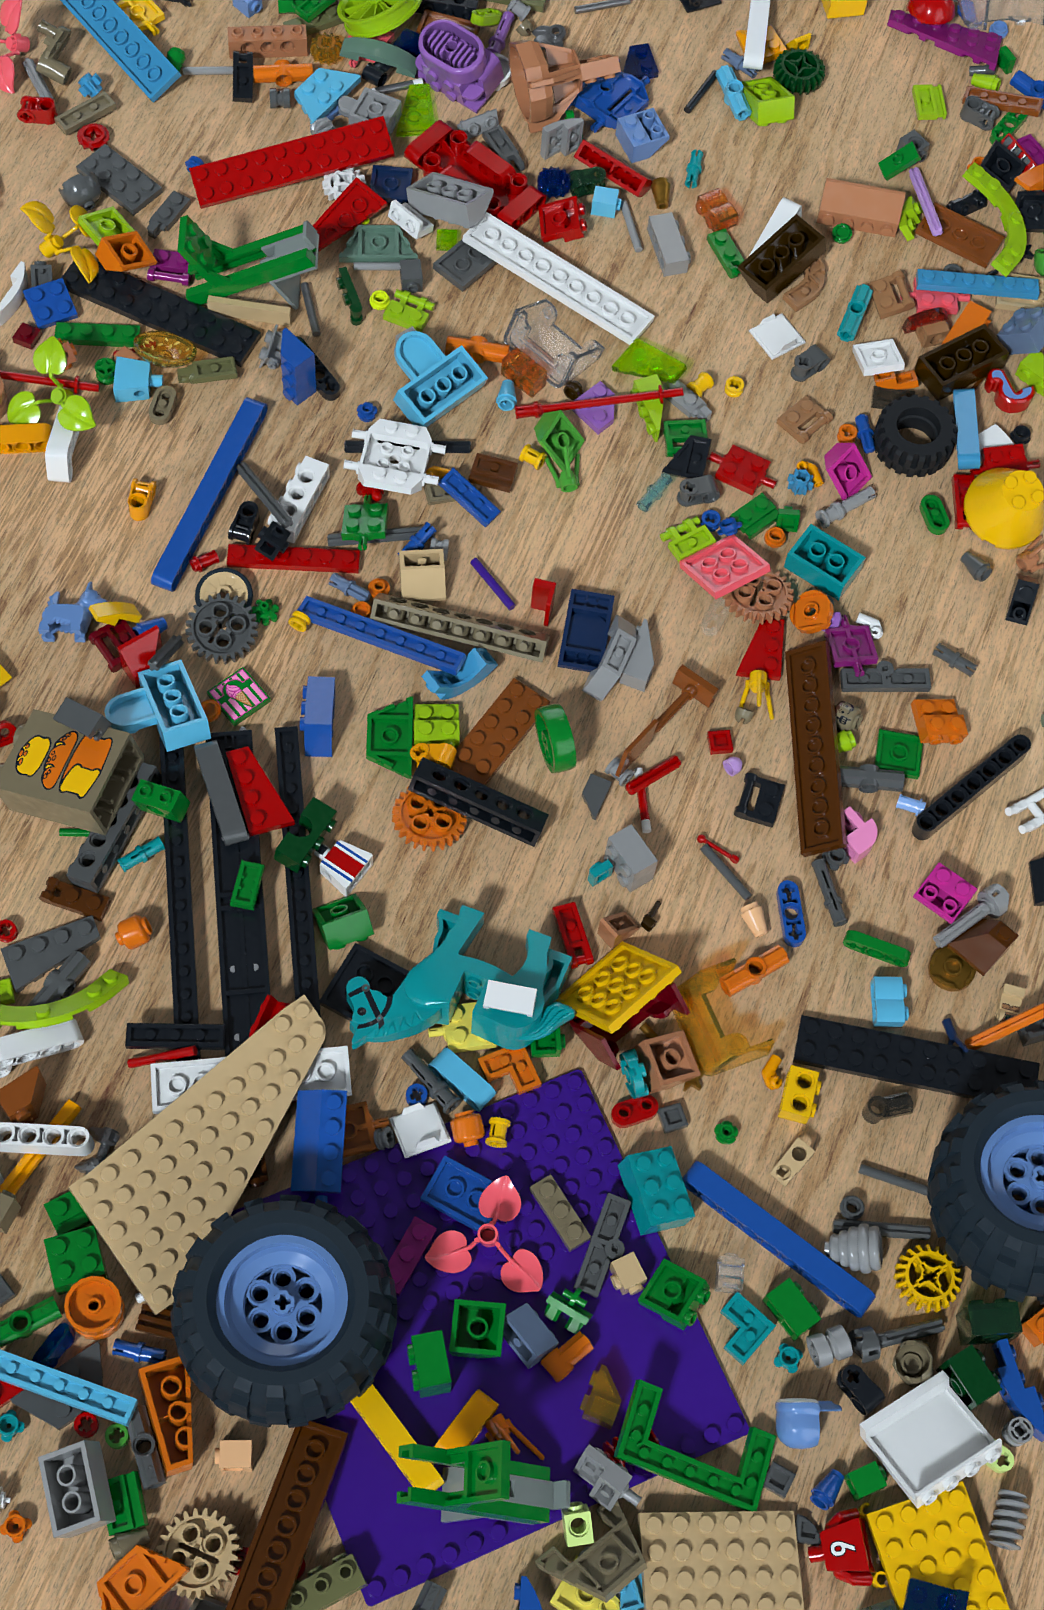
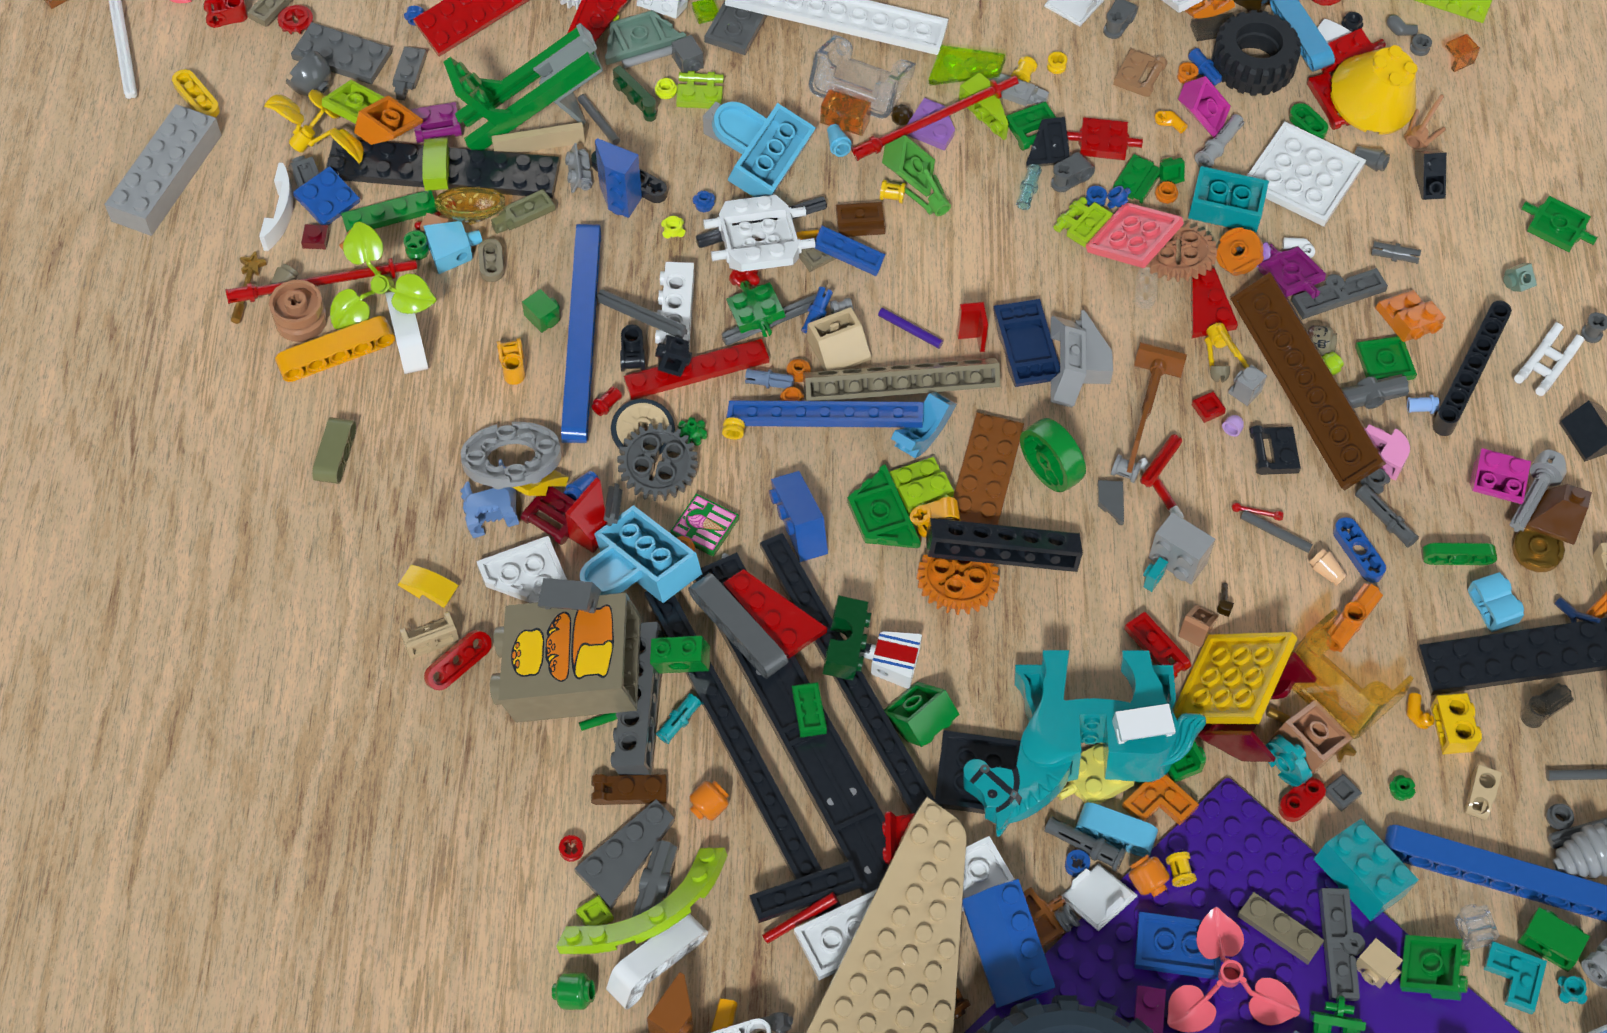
camera: 15 degrees left, 5 degrees down
(75, 680) = (522, 569): none -> white plate
(96, 560) = (481, 444): none -> light grey plate
(150, 304) = (435, 164): none -> lime slope
(185, 463) = (541, 310): none -> green brick
(329, 421) = (673, 222): none -> neon yellow plate
(478, 348) = (796, 103): orange piece -> none
(761, 731) = (1248, 385): none -> light grey brick
(800, 482) = (1166, 132): dark azure gear -> none
(908, 560) = (1306, 173): none -> white plate

